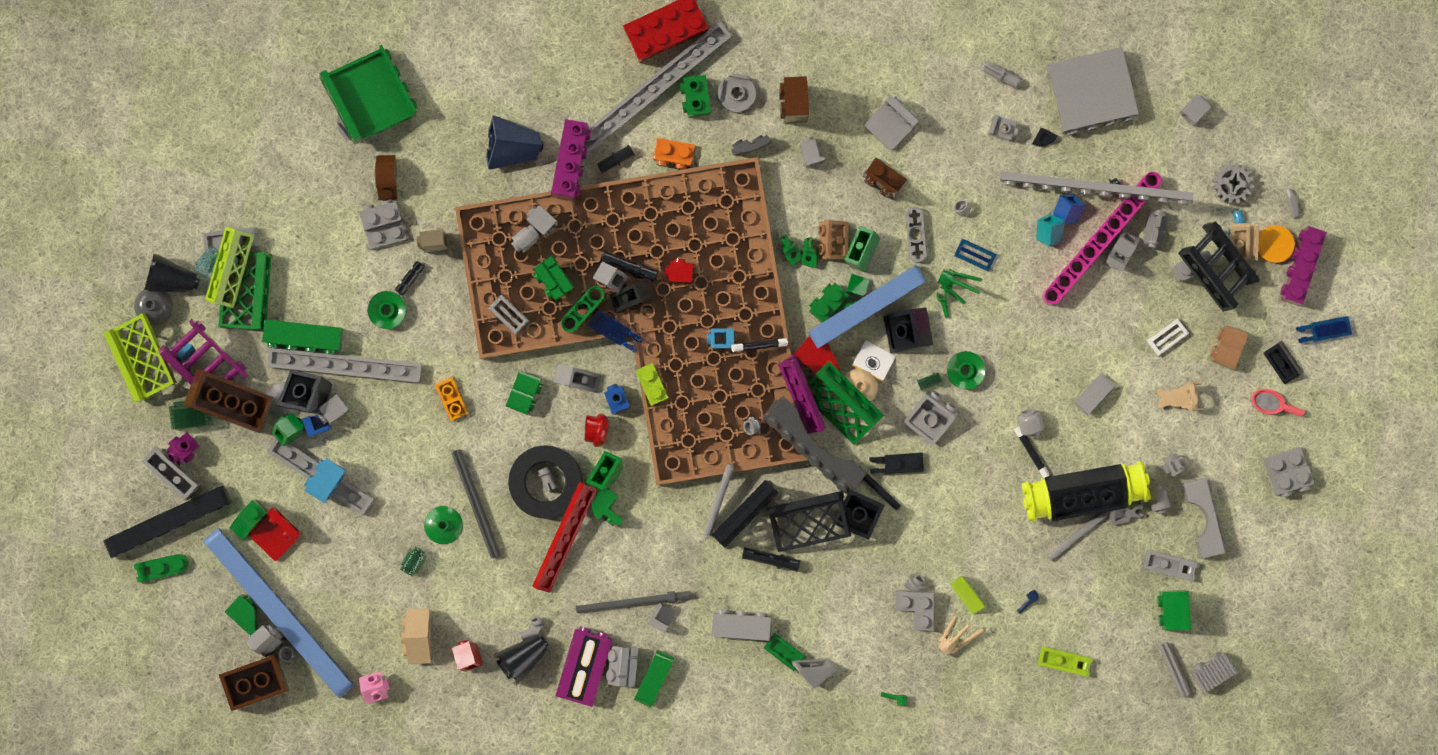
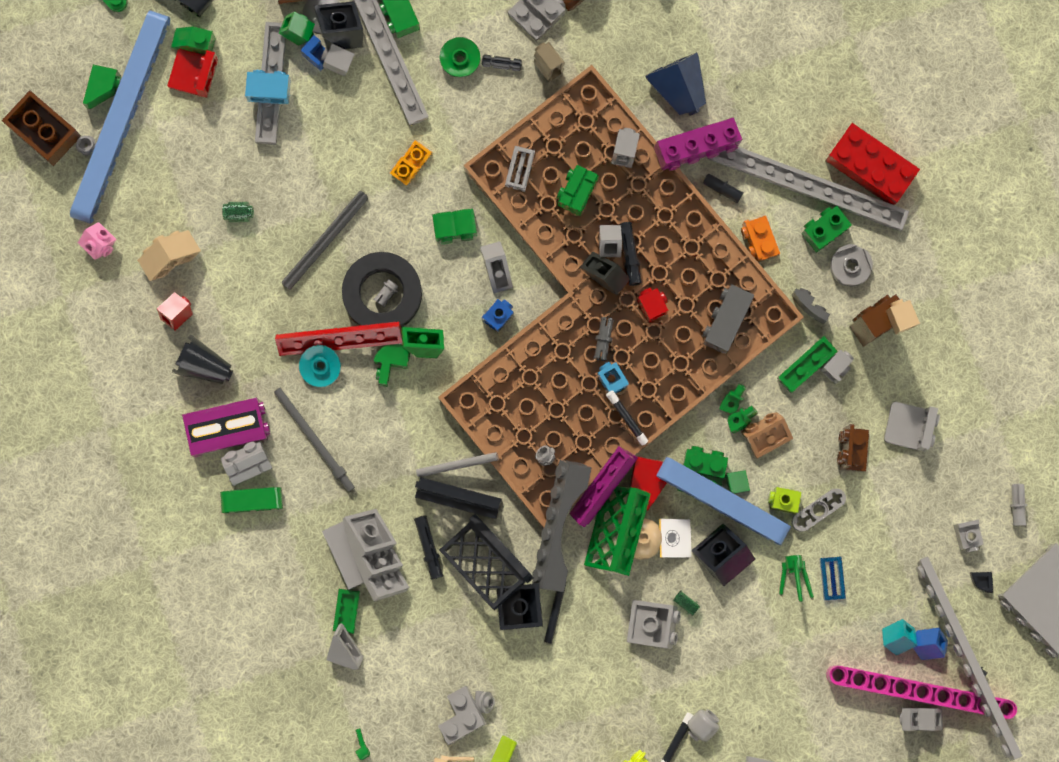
camera: 55 degrees right, 5 degrees down
(265, 640) = (86, 115): light grey brick -> none
(453, 525) = (293, 230): green dish -> none
(525, 239) = (599, 143): light grey brick -> none
(535, 628) = (236, 361): light grey arm -> none
(580, 573) = (309, 366): none -> teal dish
(584, 300) = (574, 229): green beam -> none
(596, 429) = (458, 311): red piece -> none
(613, 330) = (561, 272): clear blue hinge -> none
(651, 384) = (531, 338): lime plate -> none
(661, 617) = (313, 474): light grey panel -> none
(685, 326) = (603, 339): none -> dark grey pin
(725, 219) = (727, 318): none -> dark grey brick
(753, 605) = (374, 554): none -> light grey slope
(796, 175) = (807, 364): none -> green plate
(804, 84) = (902, 316): none -> tan brick
(862, 249) = (775, 465): green brick -> none
(893, 257) = (784, 500): none -> lime brick
(899, 463) = (590, 619): black hinge -> none
(943, 303) = (768, 574): green hand -> none
(962, 207) = (870, 539): light grey hinge -> none
(973, 363) = (727, 626): green dish -> none
(1155, 229) = (960, 740): light grey hinge -> none

